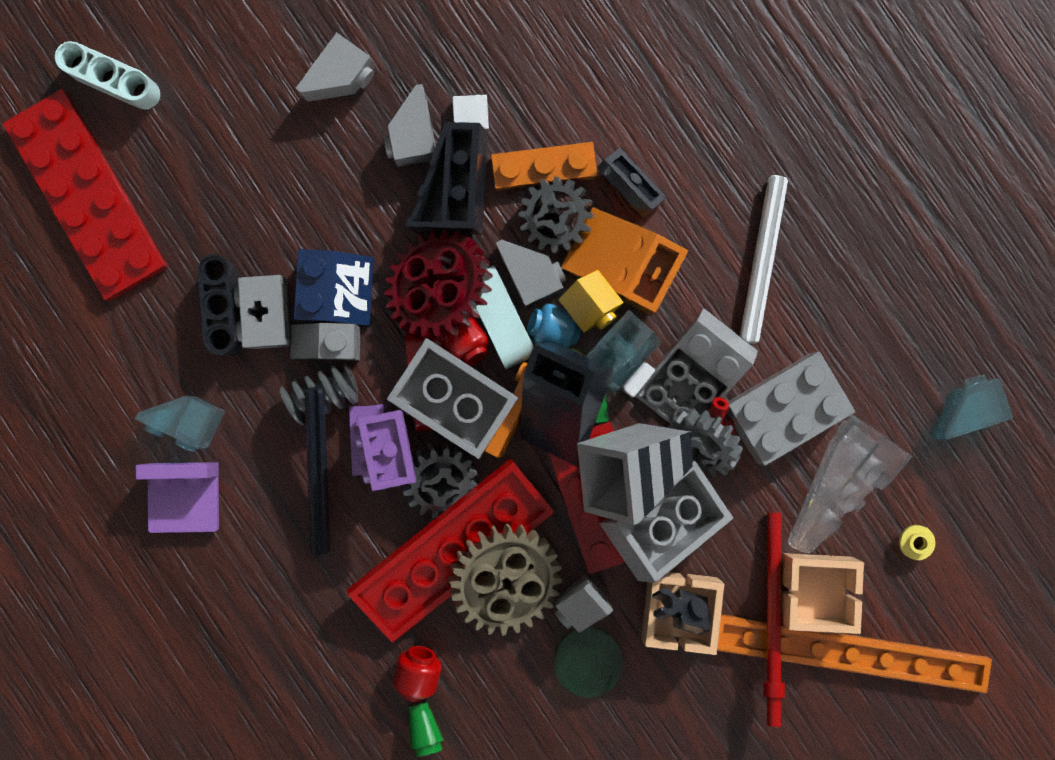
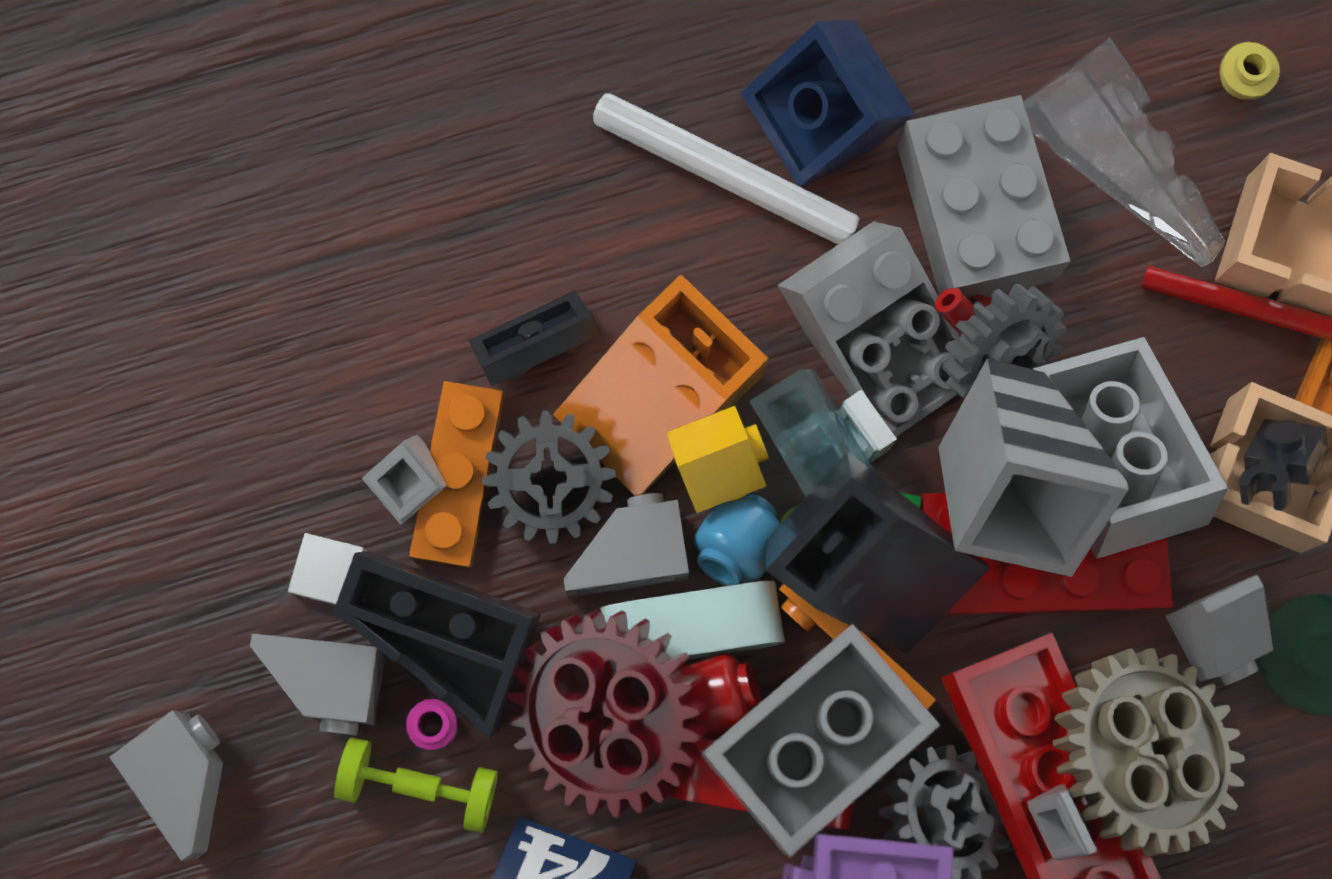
camera: 75 degrees left, 10 degrees down
(372, 162) = (355, 769): none -> lime wheel
(408, 188) = (419, 718): none -> dark pink pin
(450, 541) = (1061, 824): none -> light grey slope
(531, 138) = (406, 479): none -> light grey slope
(821, 304) = (826, 101): none -> dark blue slope

